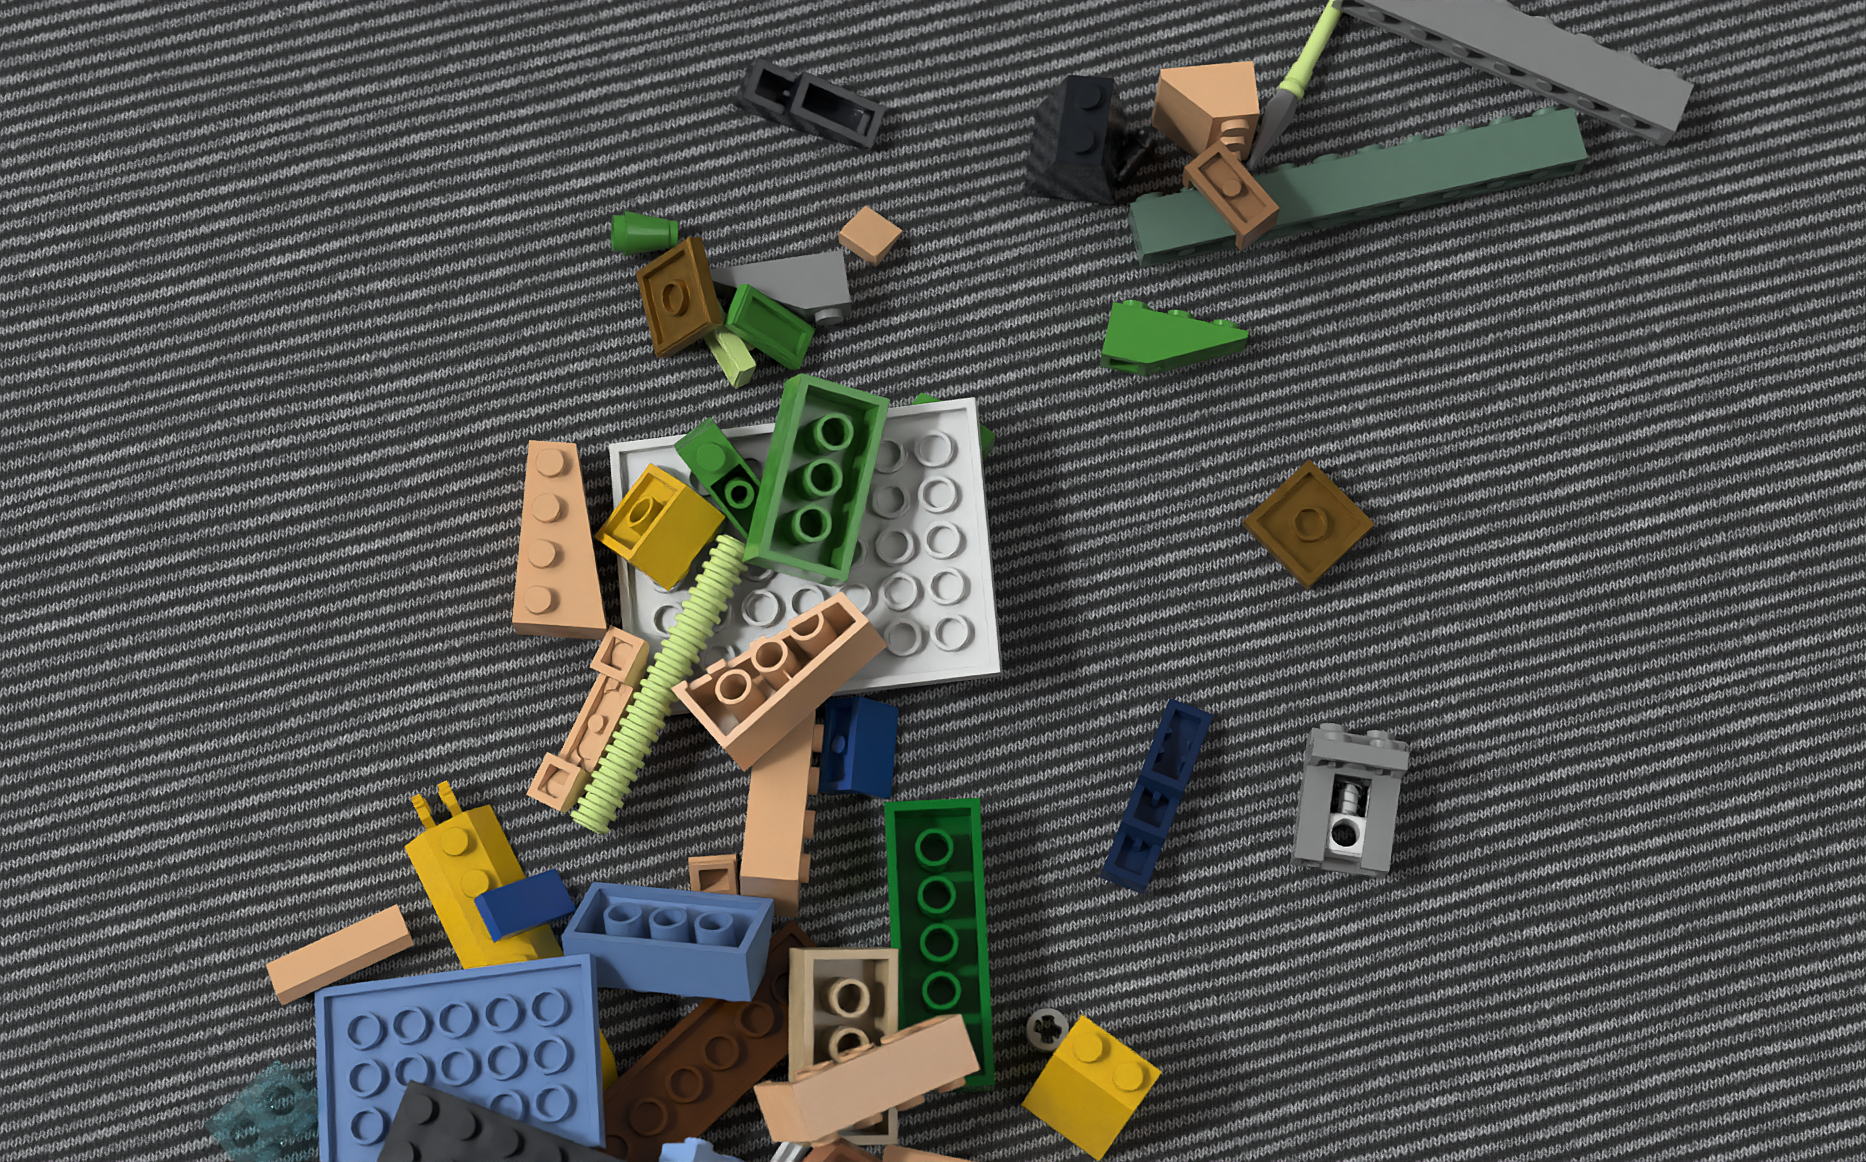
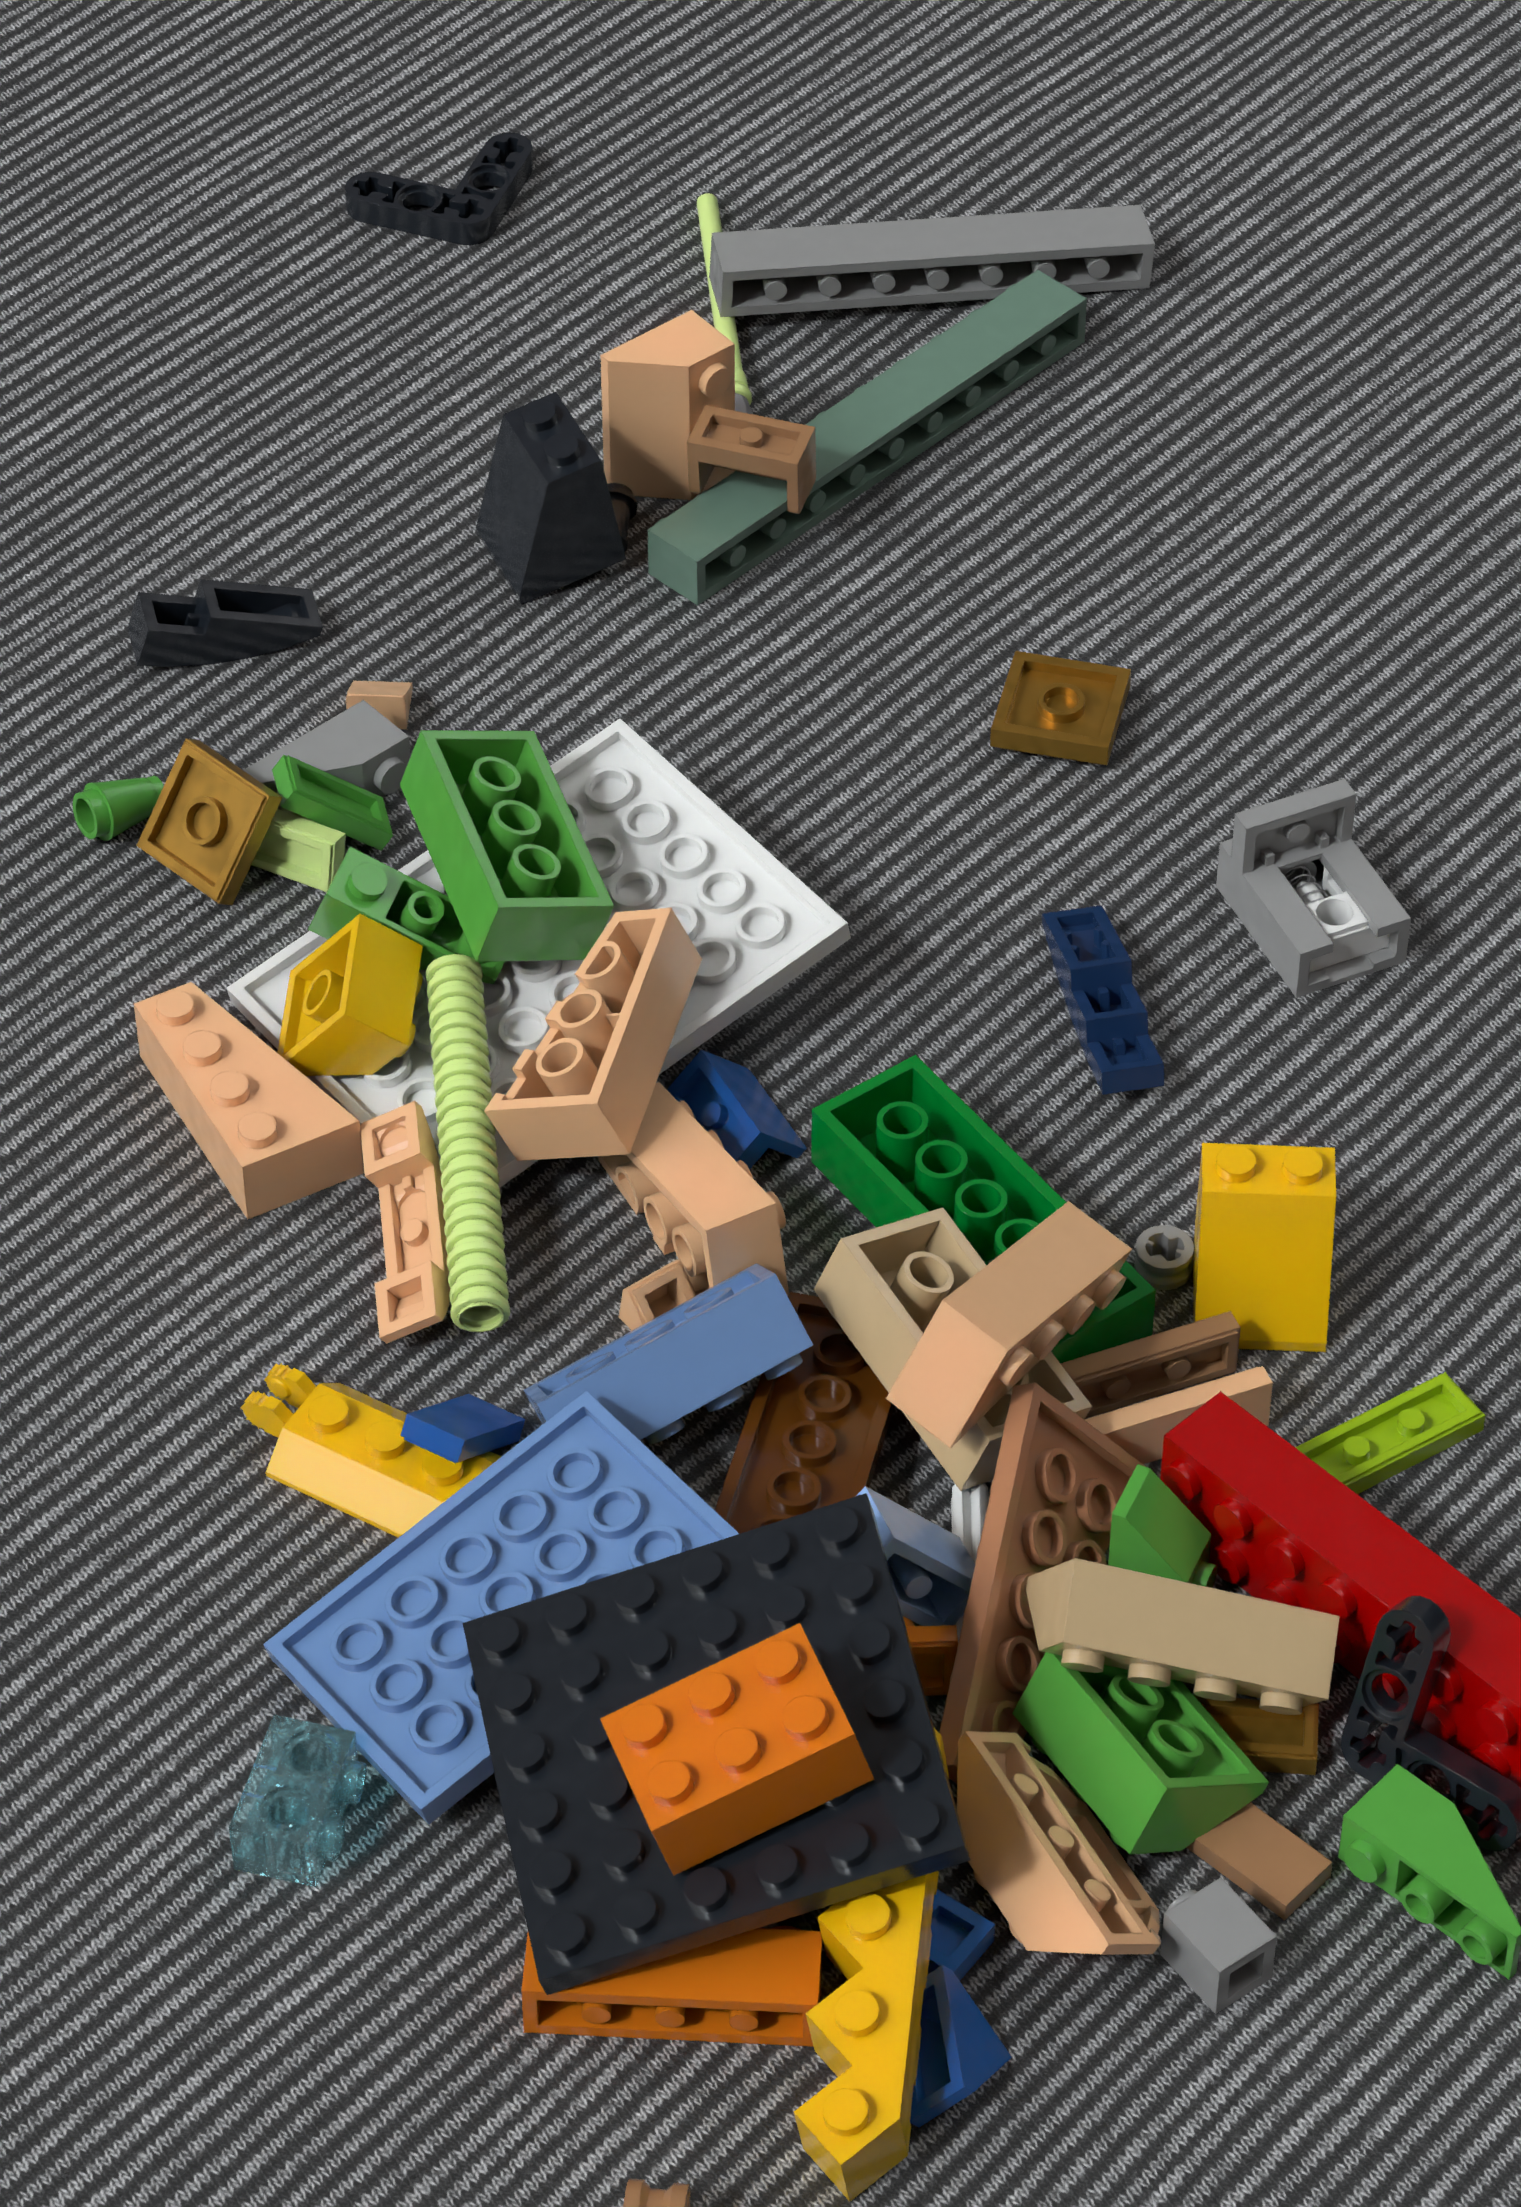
camera: 30 degrees left, 30 degrees down
(339, 954) = (269, 1598): light nougat tile -> none
(973, 1119) = (1157, 1363): none -> medium nougat tile
(1155, 341) = (776, 634): bright green slope -> none

